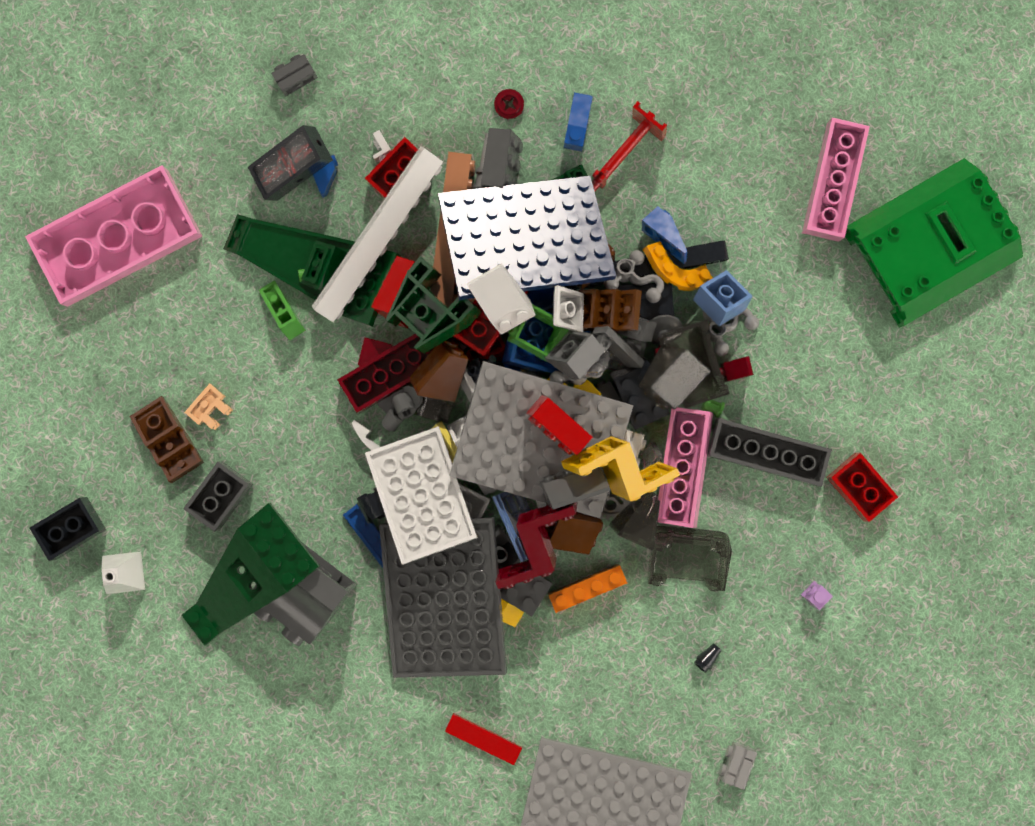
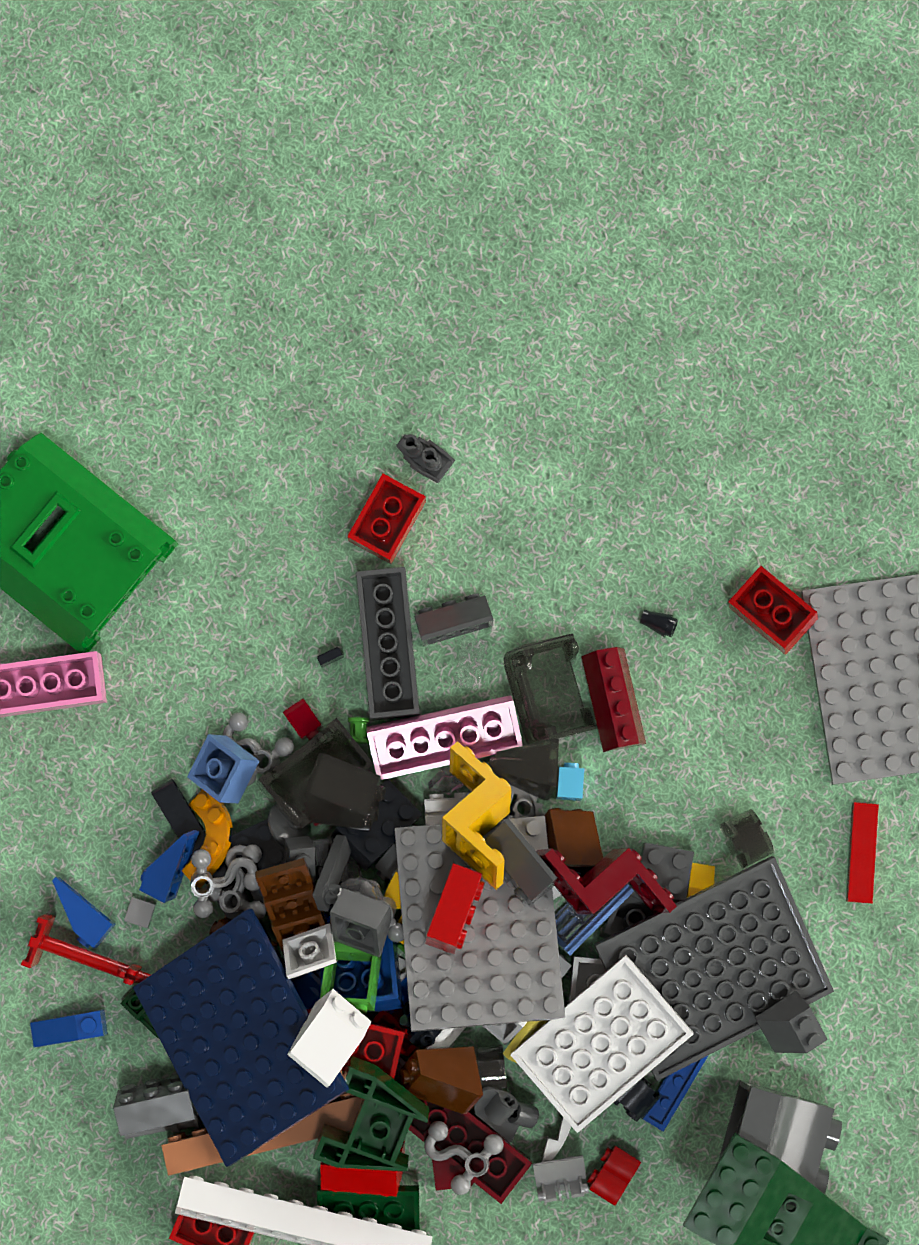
camera: 105 degrees left, 5 degrees down
(326, 467) = (613, 1175): none -> red brick
(340, 429) = (560, 1176): none -> light grey hinge
(361, 356) = (461, 1183): none -> light grey piece
(380, 637) = (791, 1026): none -> dark grey slope
(508, 95) = (68, 1129): dark red gear -> none
(526, 659) = (746, 838): none -> clear smoke brick
(587, 588) = (634, 798): orange brick -> none
(616, 546) = (570, 782): none -> medium azure brick
(640, 201) = (140, 912): none -> light grey tile
(654, 159) = (84, 918): none -> blue slope
(663, 256) = (201, 860): none -> light grey piece
(665, 601) = (613, 699): none -> dark red slope
(686, 746) = (773, 610): none -> red brick
(737, 765) = (770, 540): light grey brick -> none
(767, 507) = (453, 619): none -> dark grey slope
(774, 406) = (330, 656): none -> black tile
(816, 595) = (535, 523): lavender brick -> none
(897, 533) = (425, 457): none -> dark grey connector

